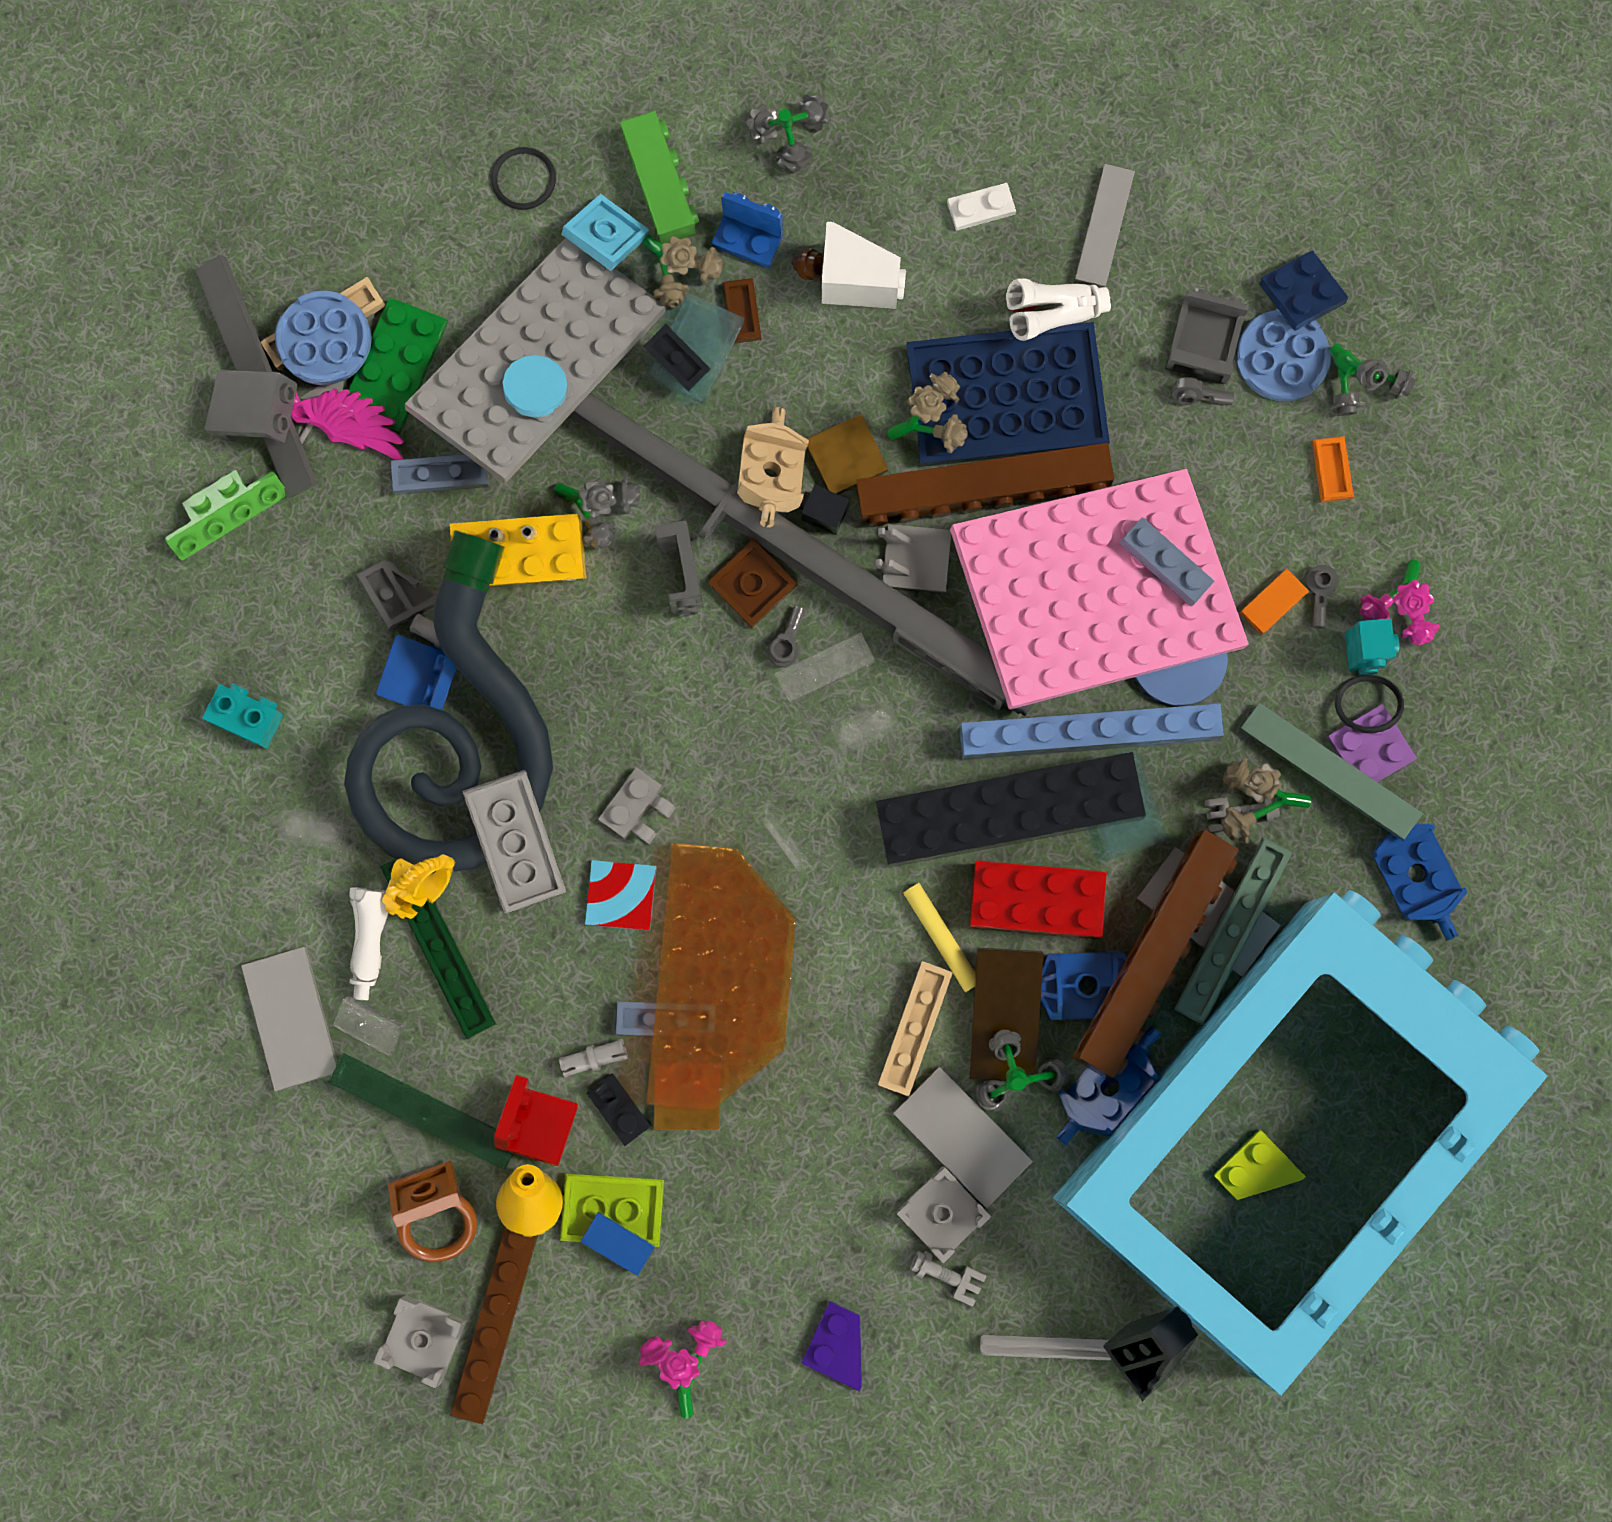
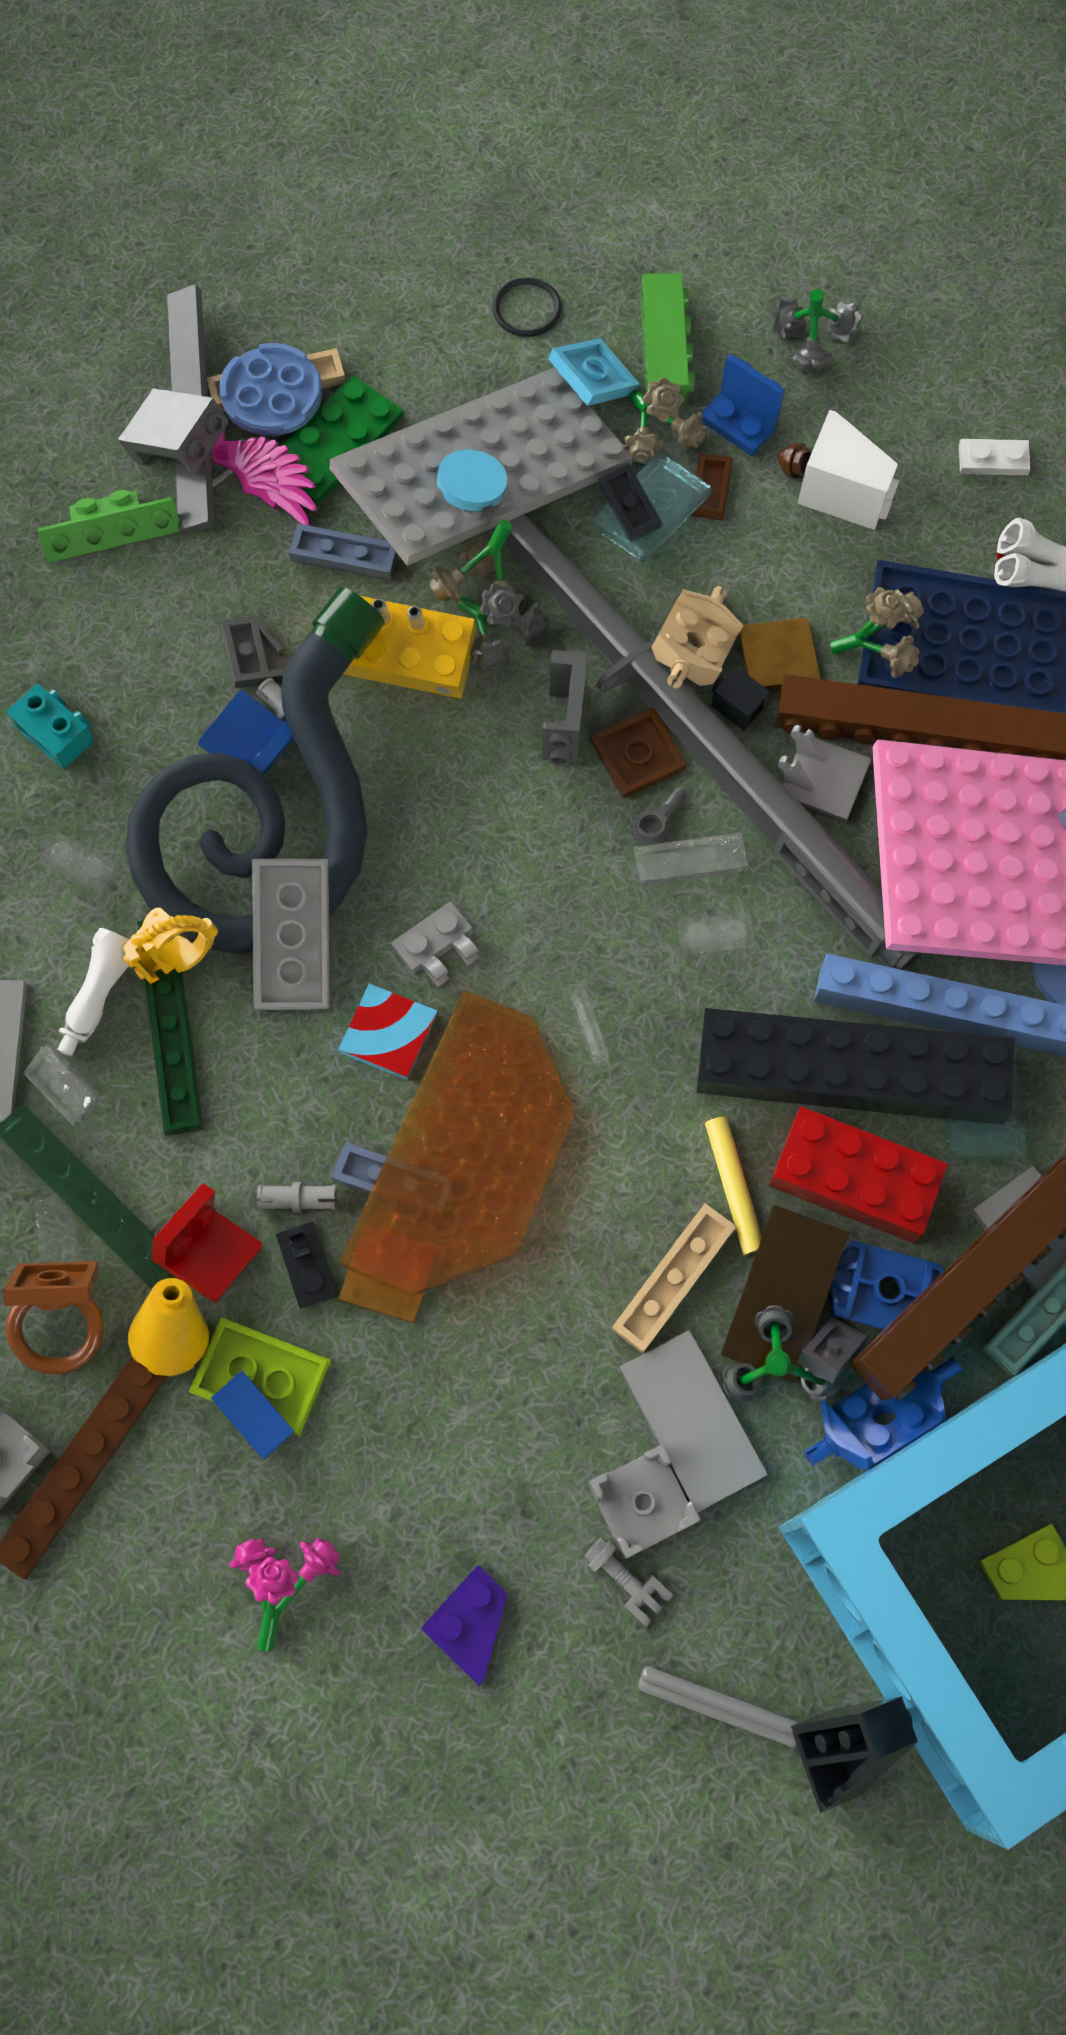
camera: 15 degrees right, 10 degrees down
(561, 447) = (479, 558): none -> dark tan plant
(1055, 1050) = (832, 1350): none -> flat silver plate

